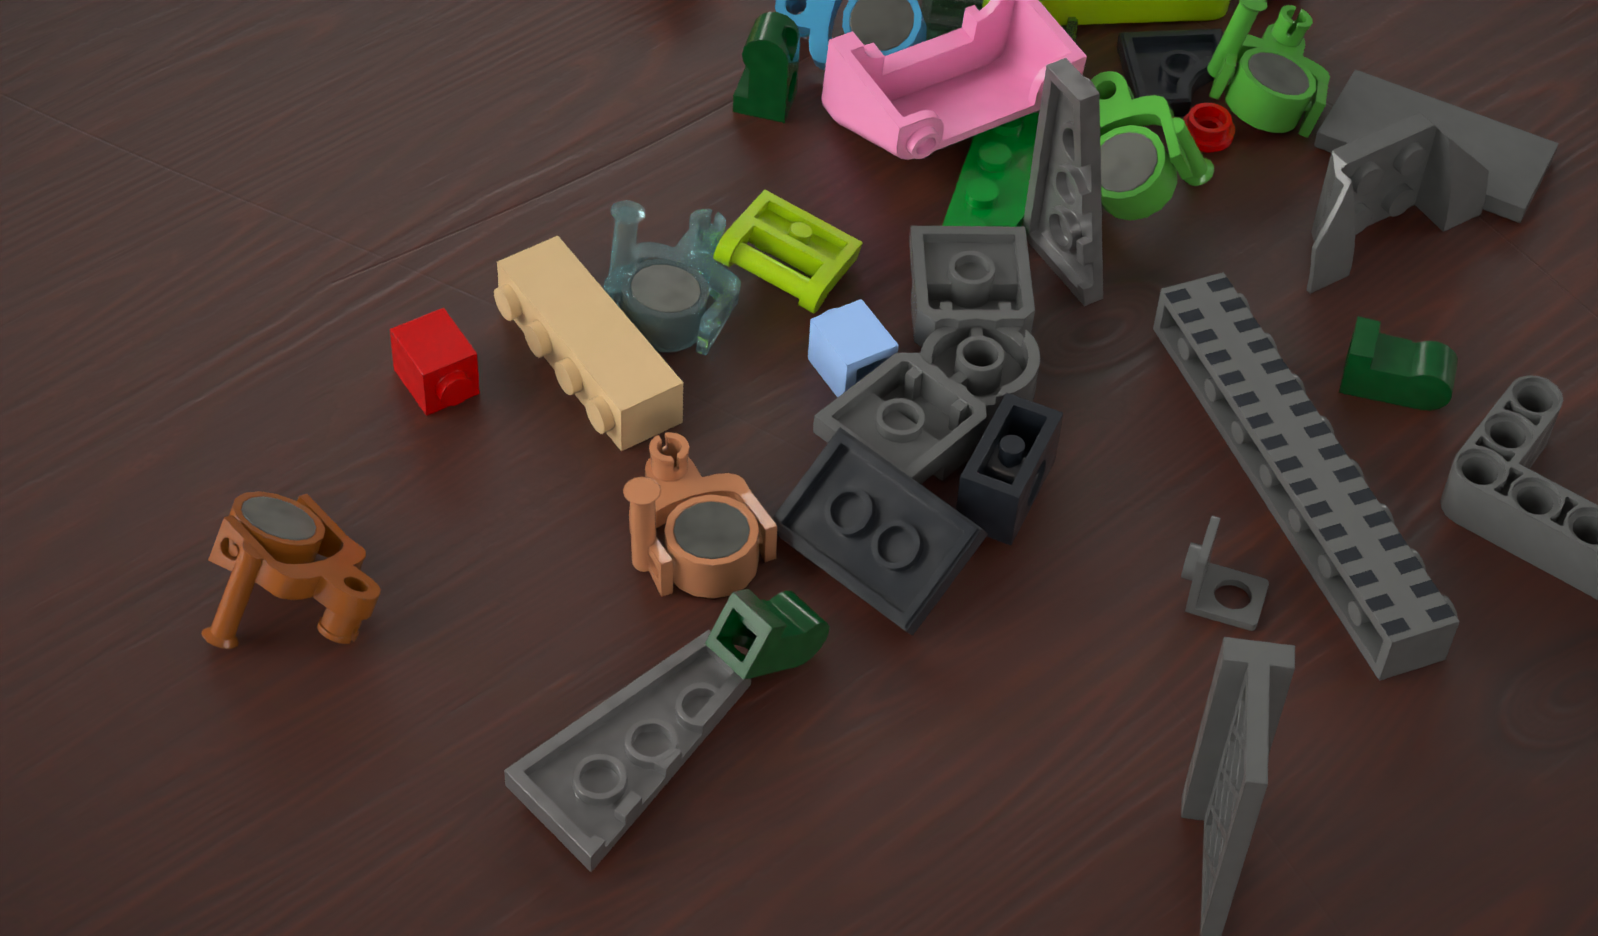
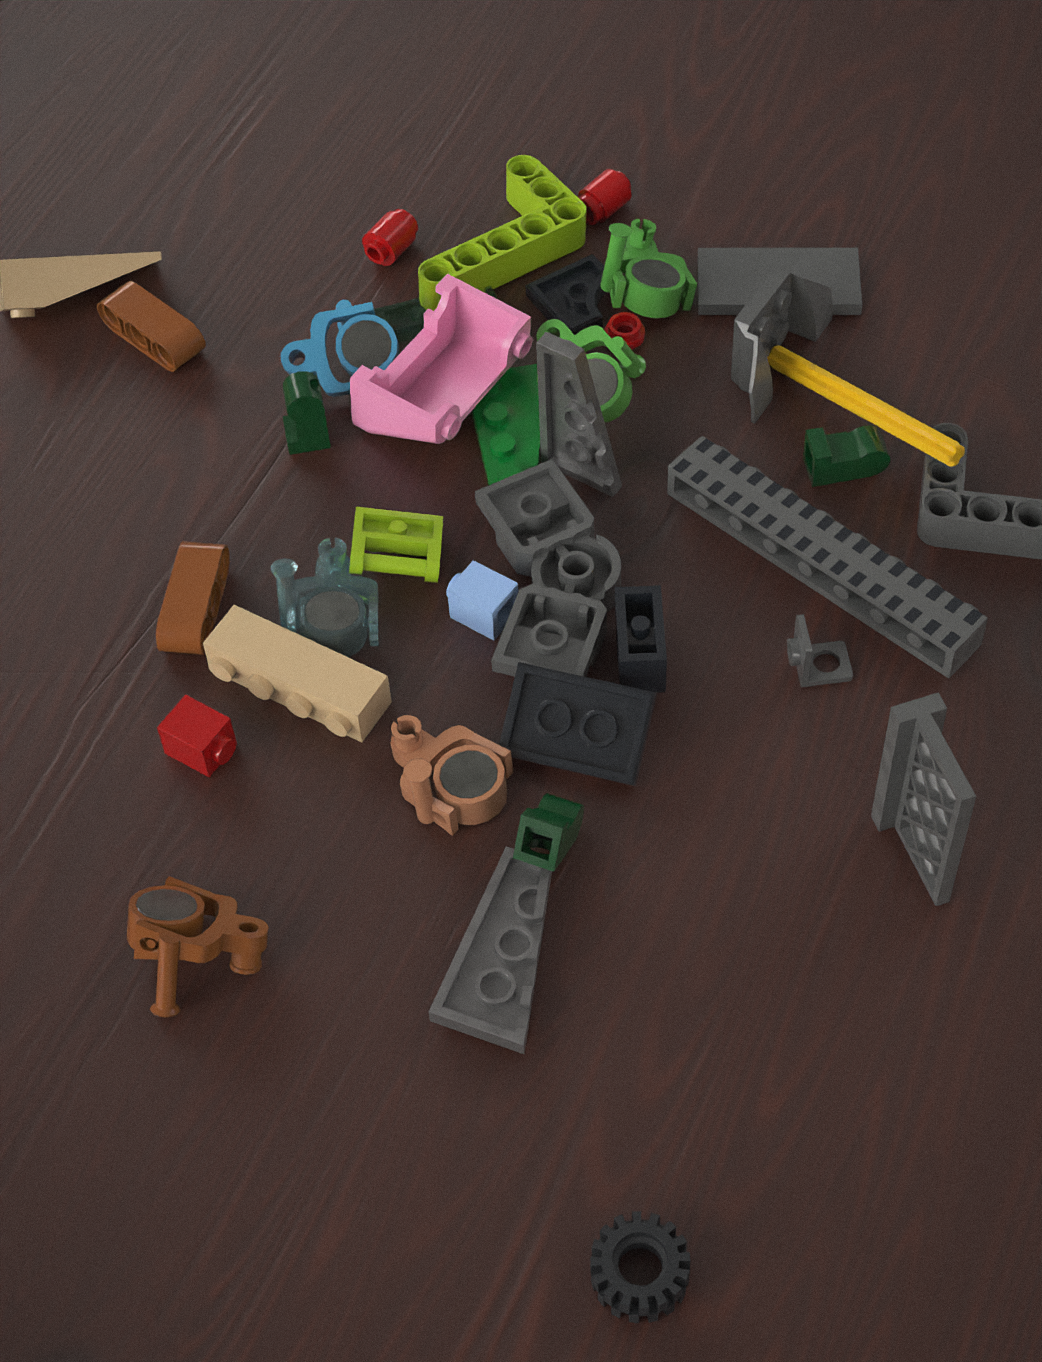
camera: 20 degrees left, 5 degrees up
(524, 211) = (192, 597): none -> dark orange beam
(1454, 322) = (866, 406): none -> yellow axle

